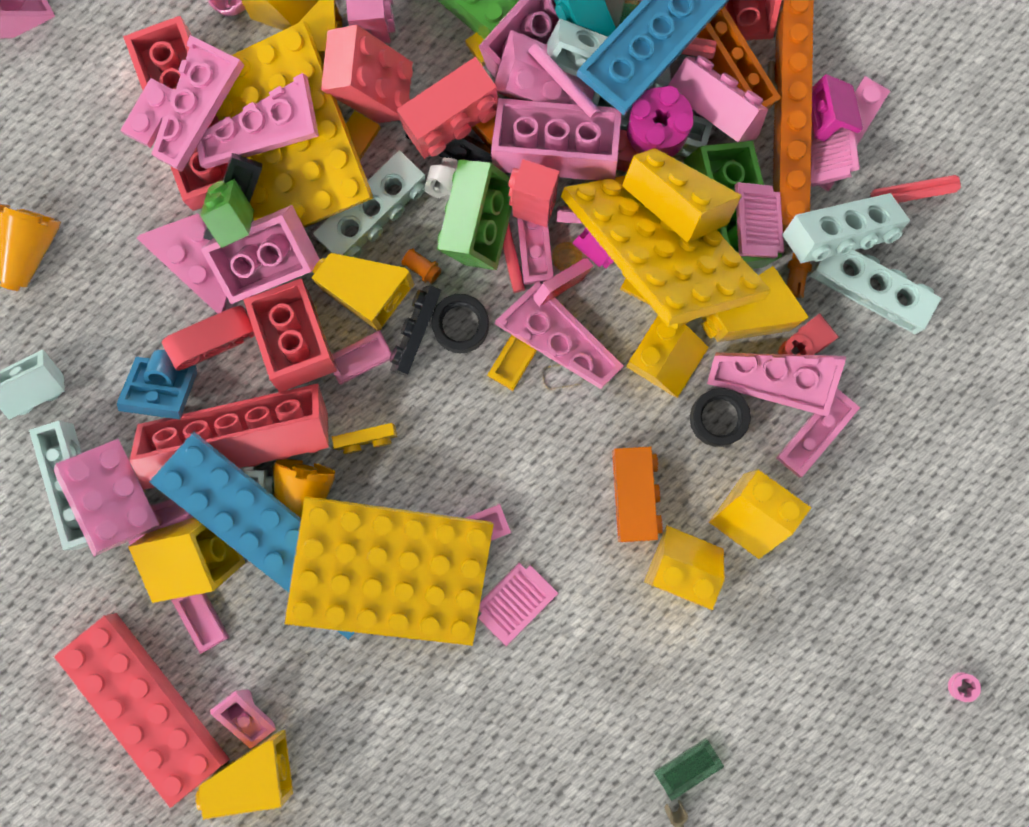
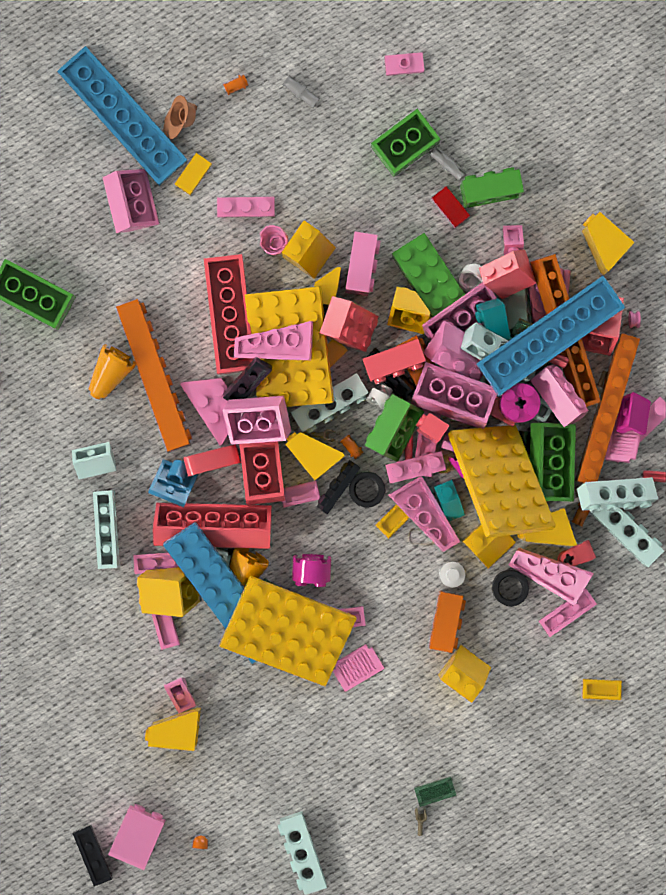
camera: 10 degrees right, 5 degrees up
(92, 234) = (153, 375): none -> orange brick
(105, 497) = (131, 545): bright pink brick -> none
(141, 708) = (121, 673): coral brick -> none
(148, 113) = (217, 310): bright pink plate -> none
(200, 92) = (245, 313): bright pink wing -> none
(227, 212) = (245, 394): bright green brick -> none
(352, 441) = (283, 546): yellow plate -> none
(378, 255) = (325, 434): none -> dark tan hand
(404, 466) = (311, 569): none -> dark pink brick
(452, 35) = (408, 311): none -> yellow slope
(525, 269) = (415, 467): none -> bright pink plate
(562, 281) = (436, 481): bright pink tile -> none
(564, 80) = (468, 363): bright pink bar -> none
(590, 306) = (449, 500): none -> teal slope
(624, 419) = (452, 574): none -> white piece
(679, 194) = (518, 453): yellow wedge -> none
(759, 221) = (564, 476): bright pink window -> none
(759, 513) = (516, 653): yellow slope -> none
(904, 538) = (602, 689): none -> yellow tile
(956, 681) = (616, 790): bright pink bush -> none

